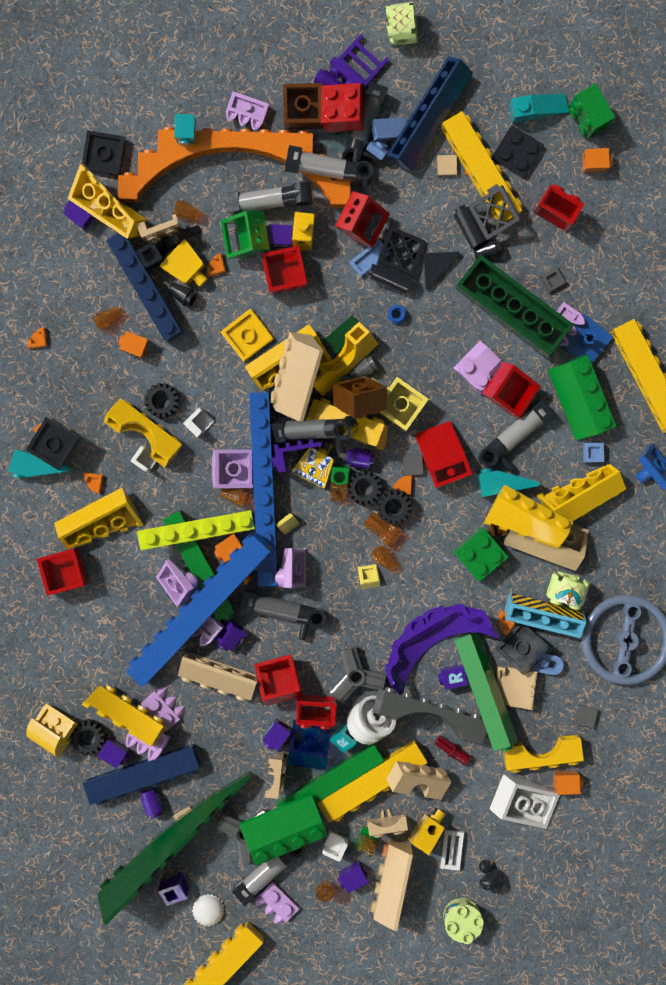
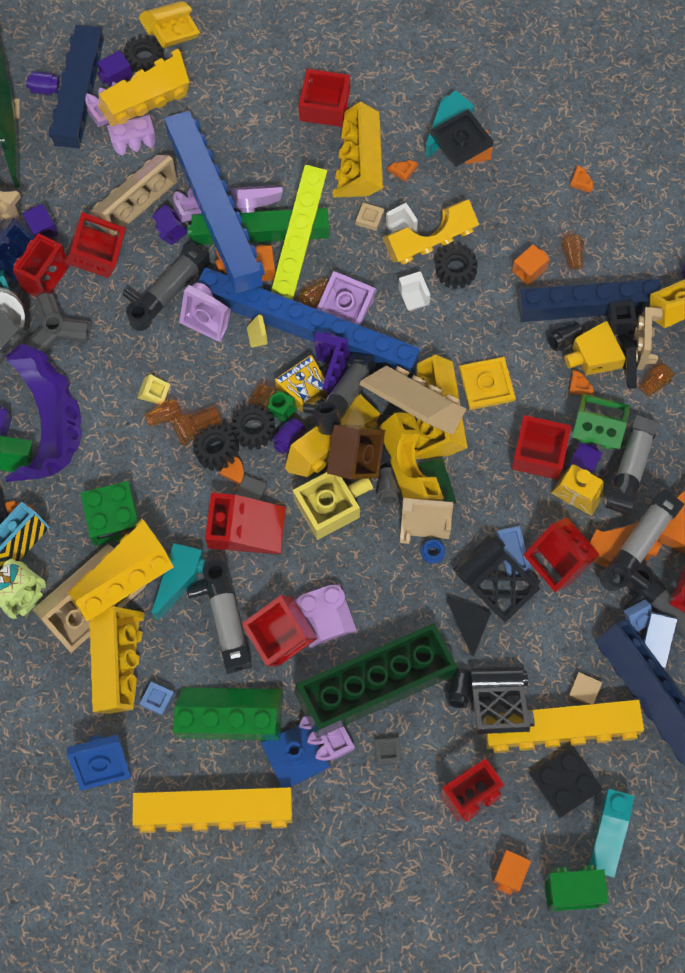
camera: 115 degrees right, 20 degrees down
(148, 487) = (369, 216): none -> tan tile
(381, 333) = (425, 519): none -> tan piece

